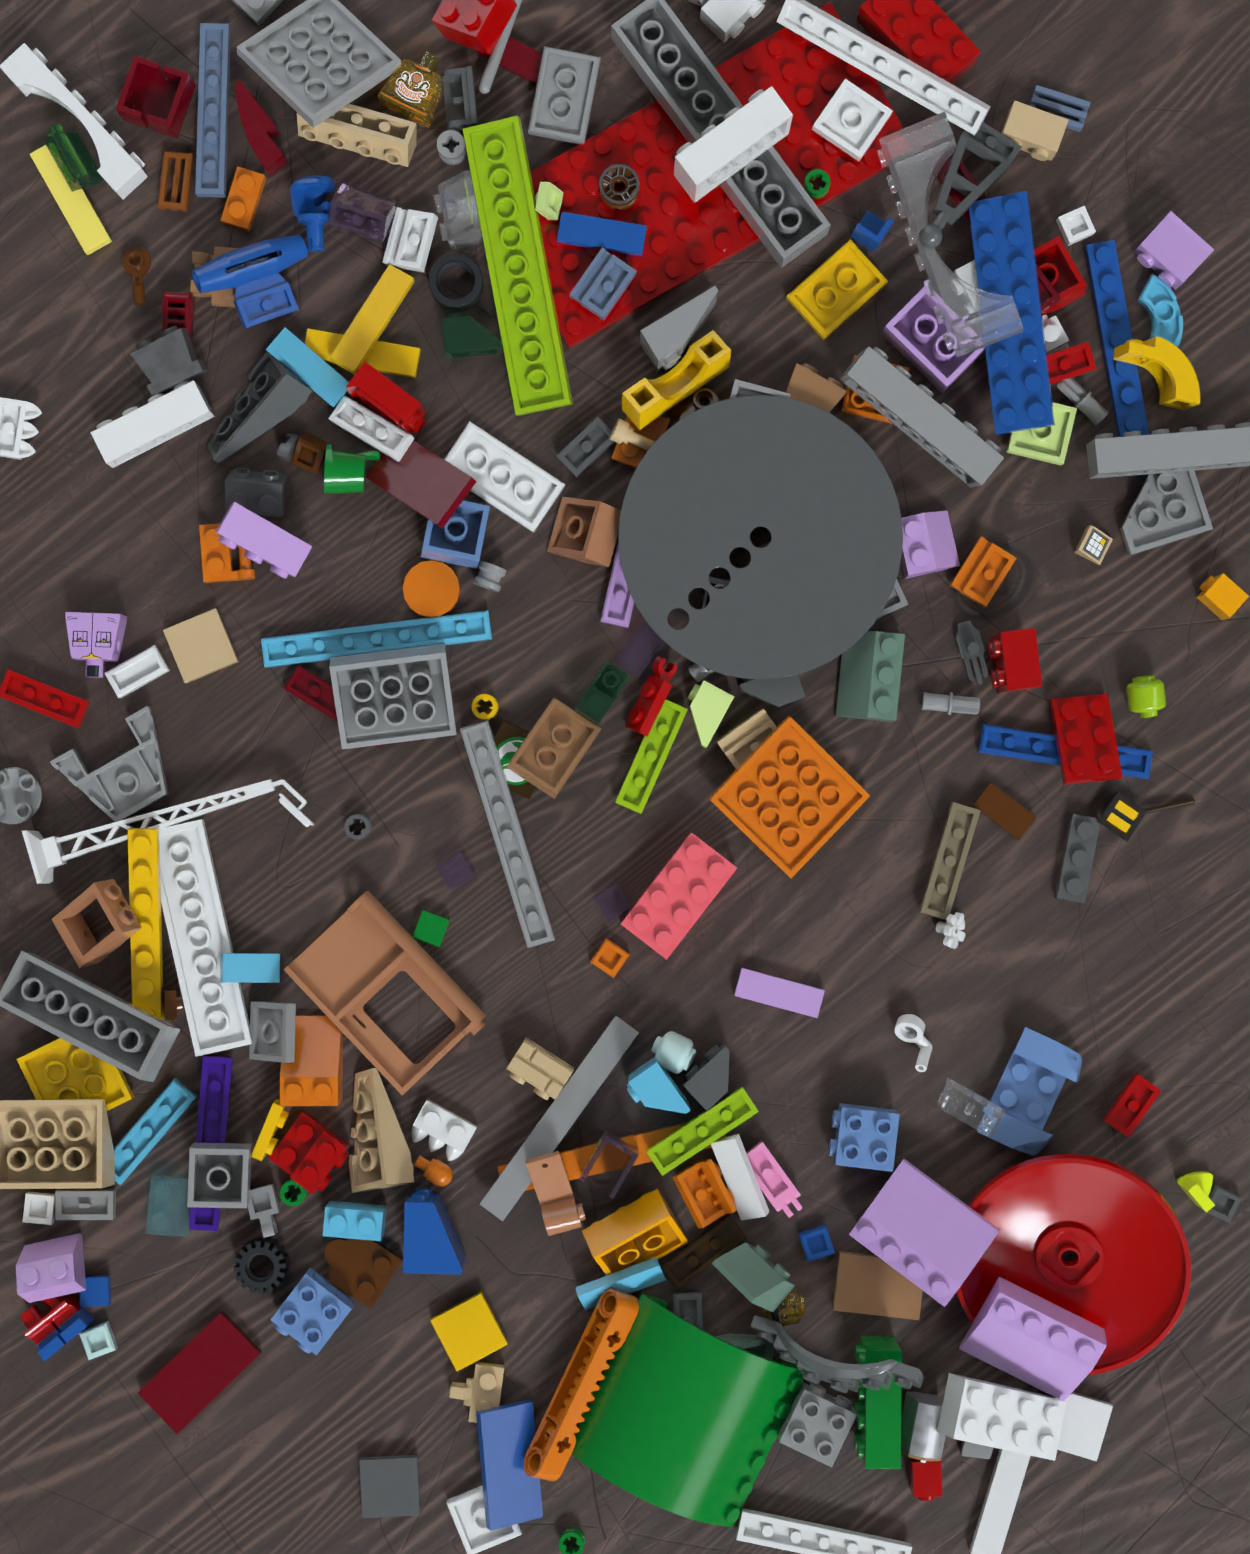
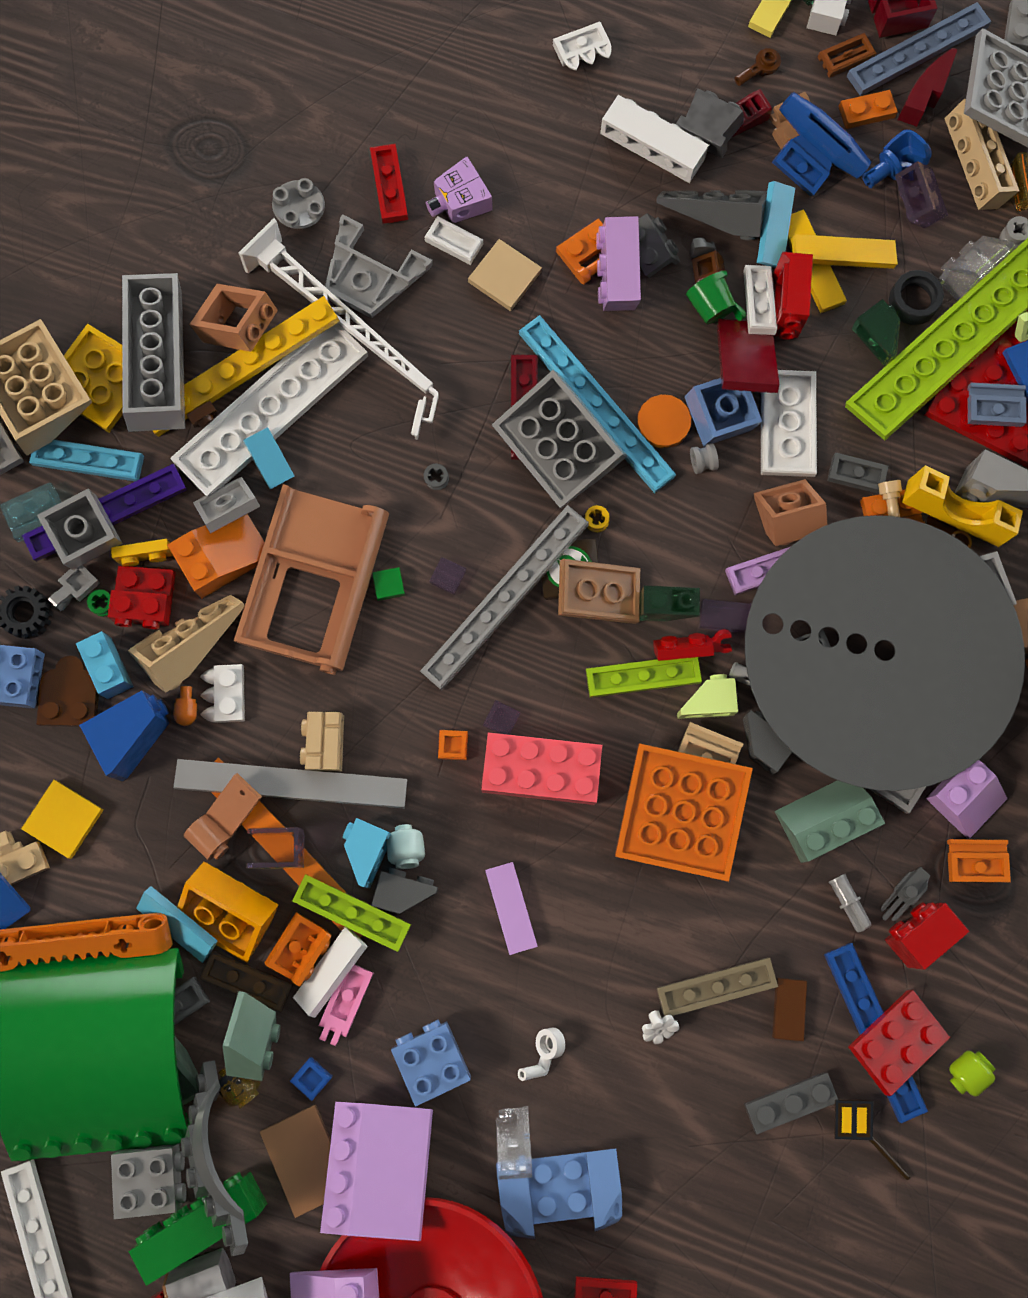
camera: 60 degrees right, 10 degrees down
(410, 239) = (924, 244): white plate -> none

